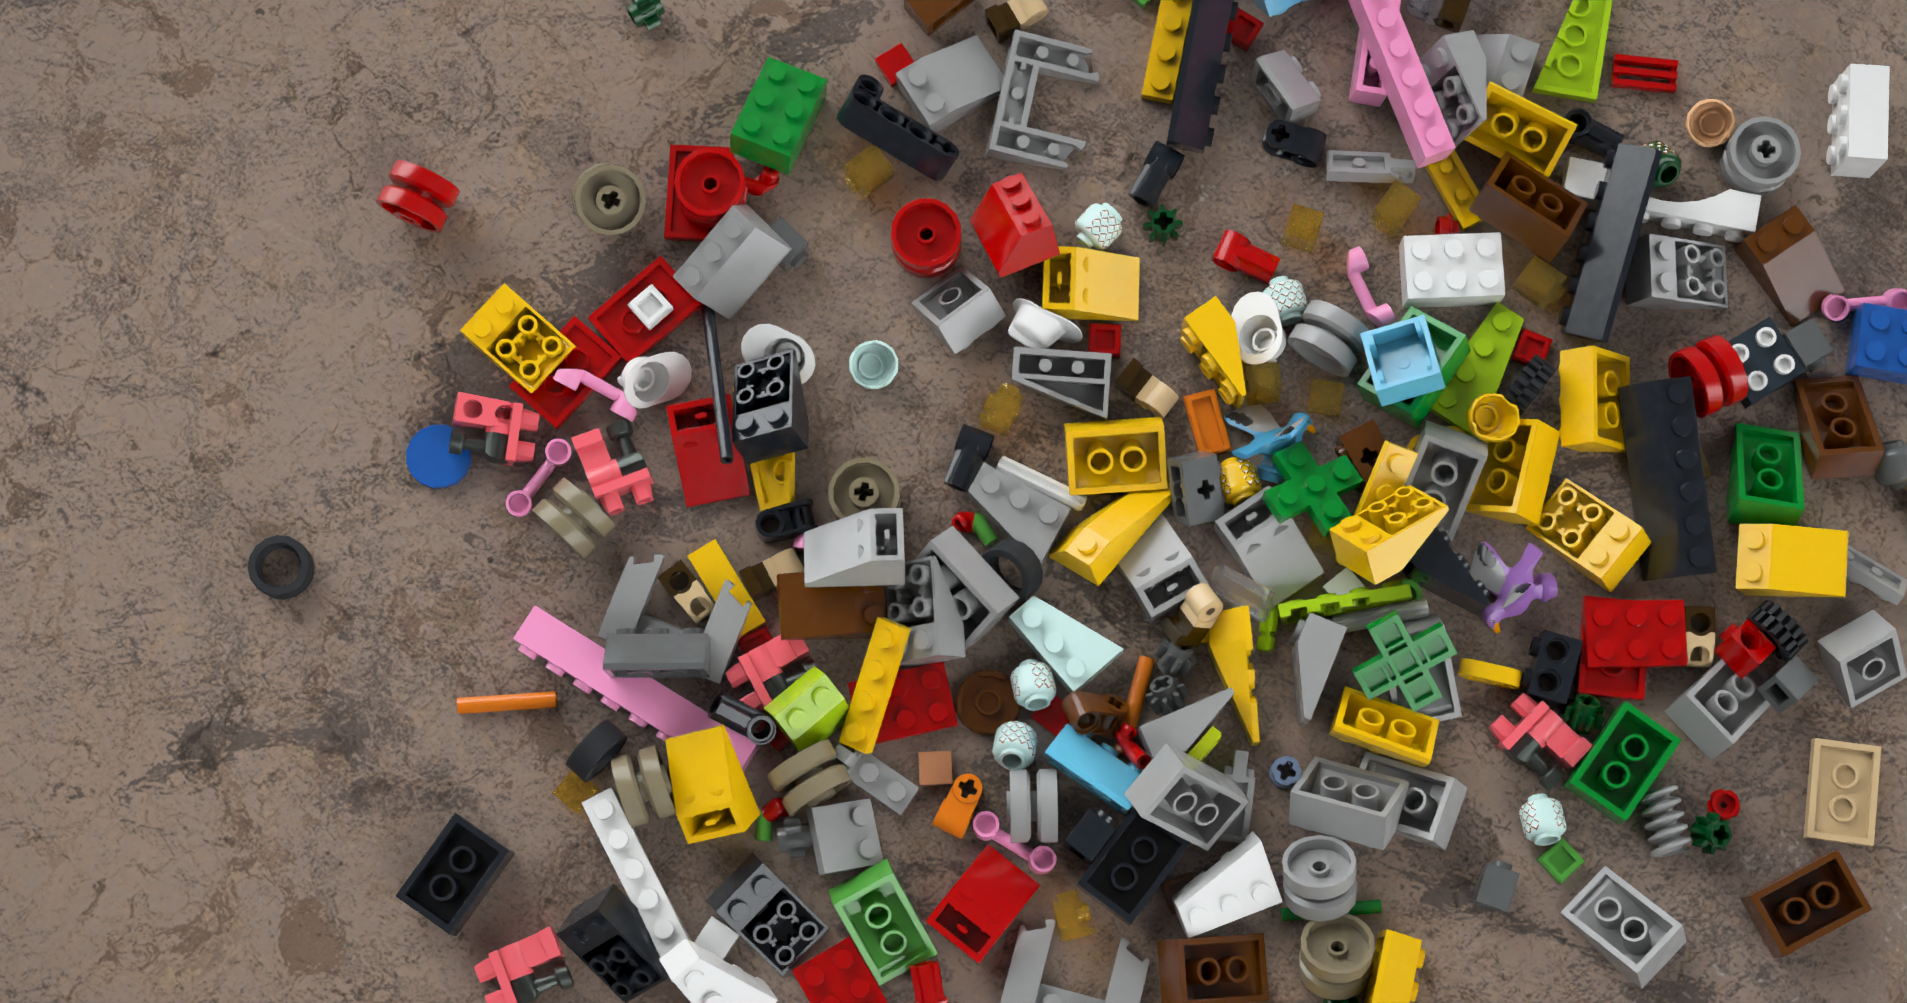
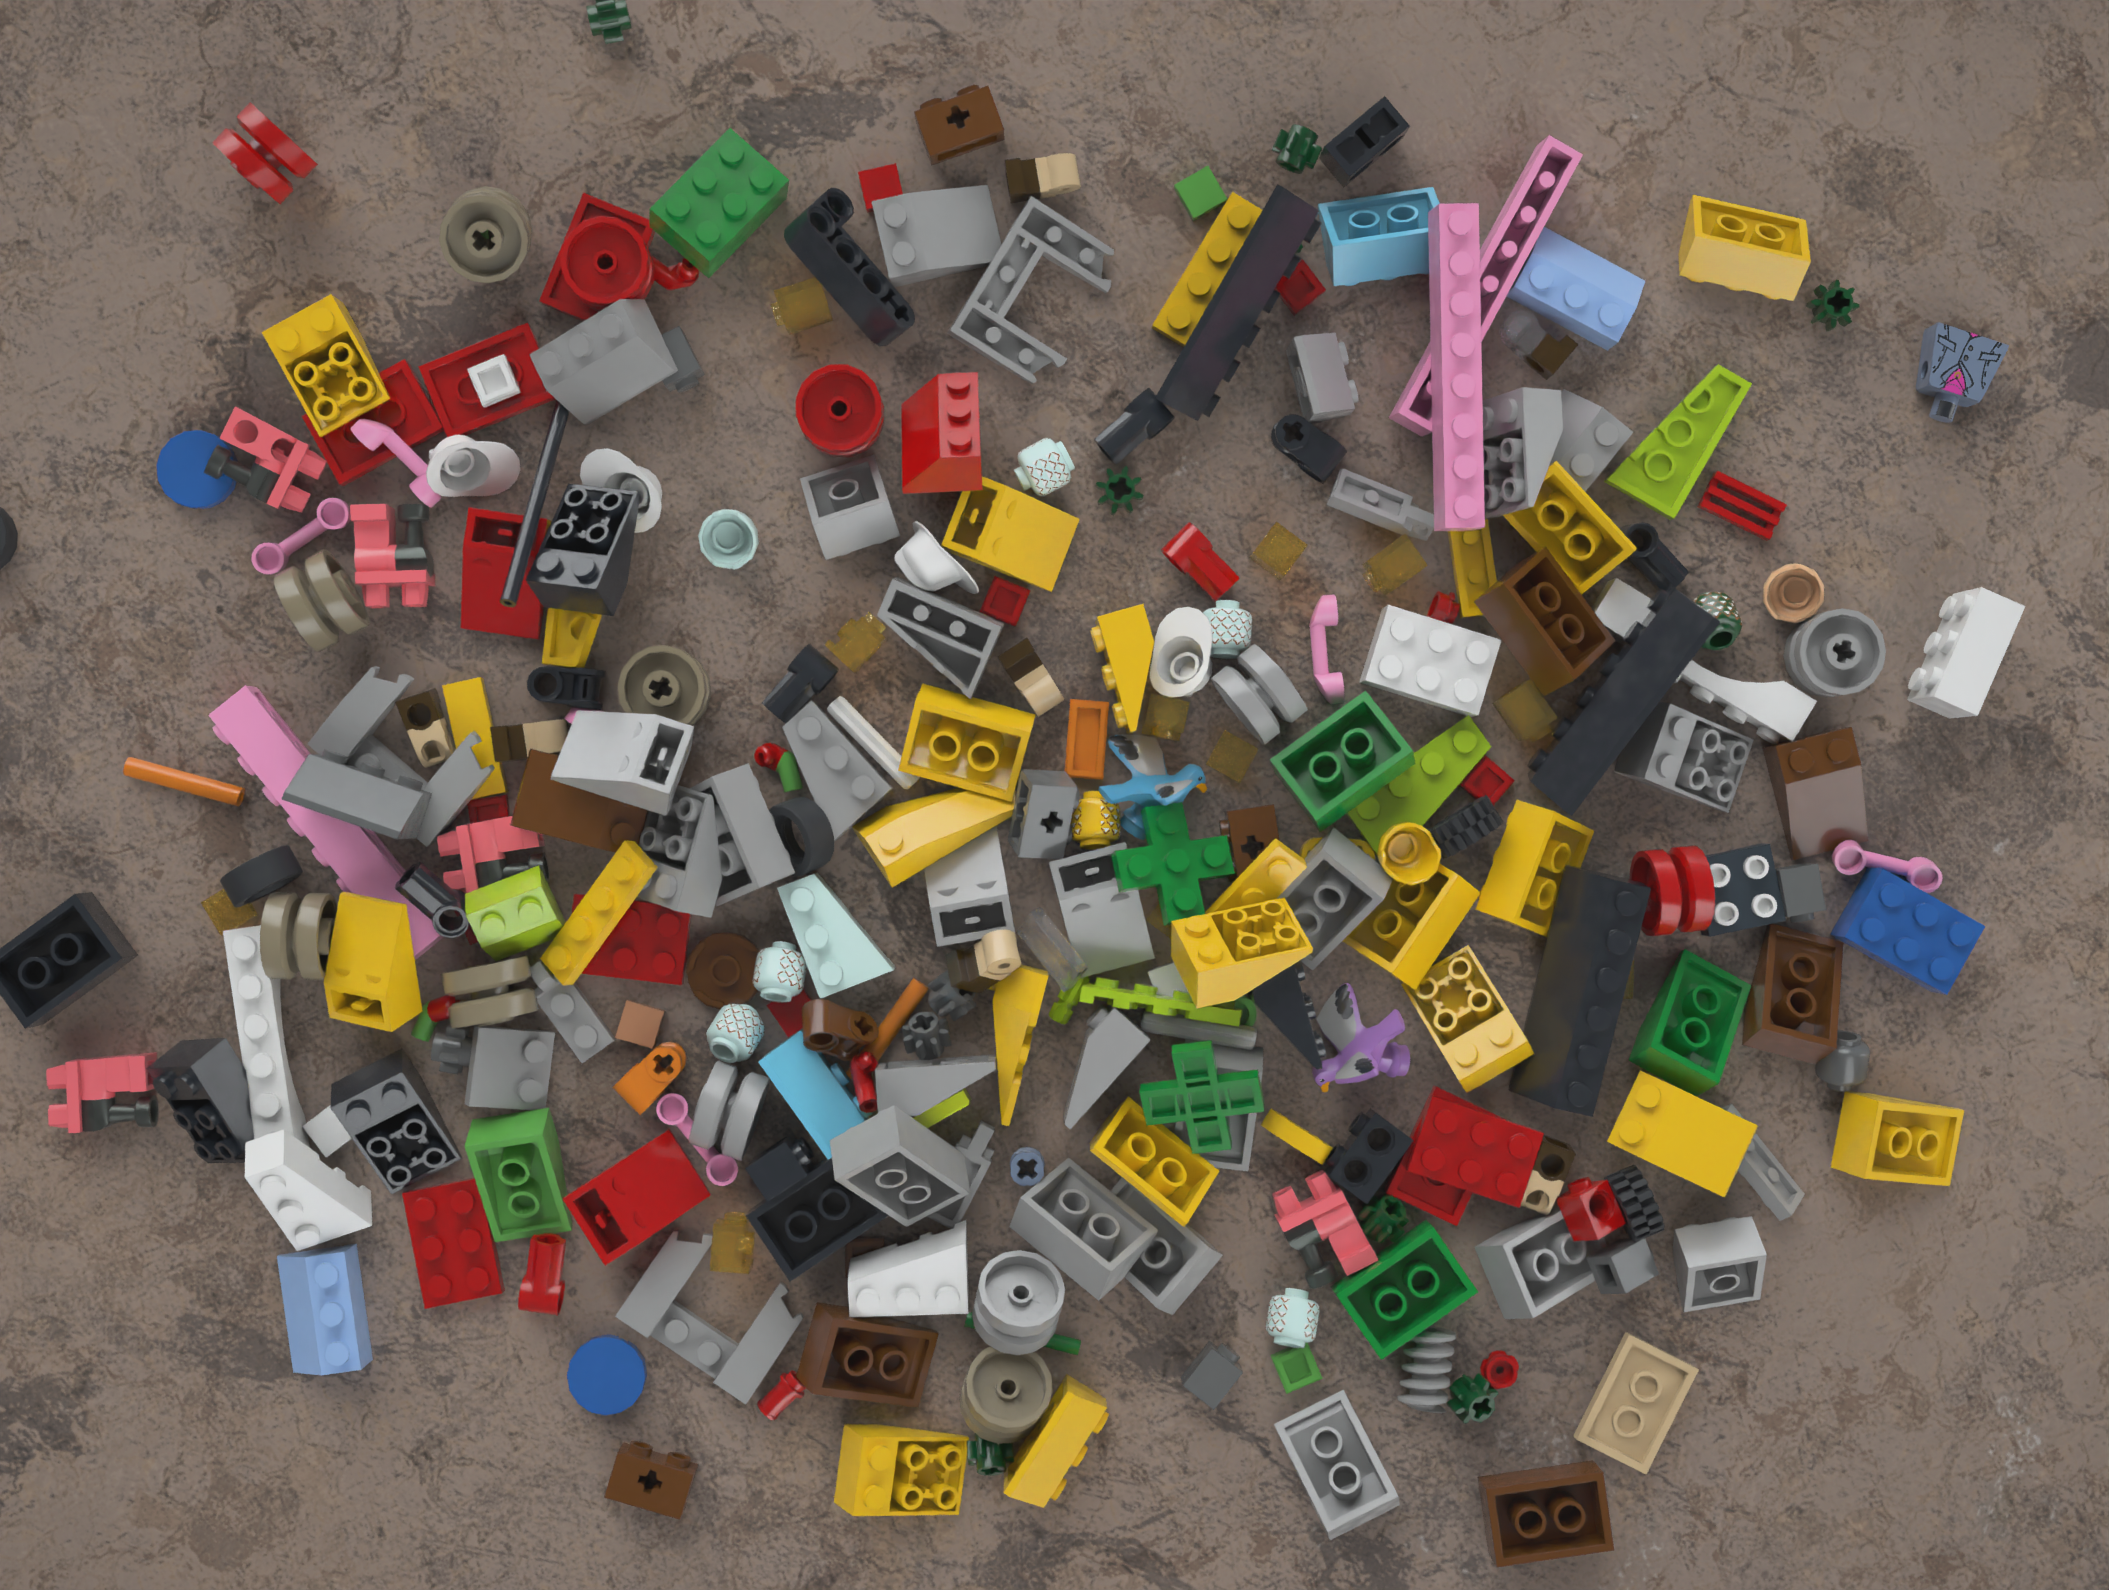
camera: 20 degrees right, 10 degrees up
(1402, 360) = (1328, 756): medium azure container -> none

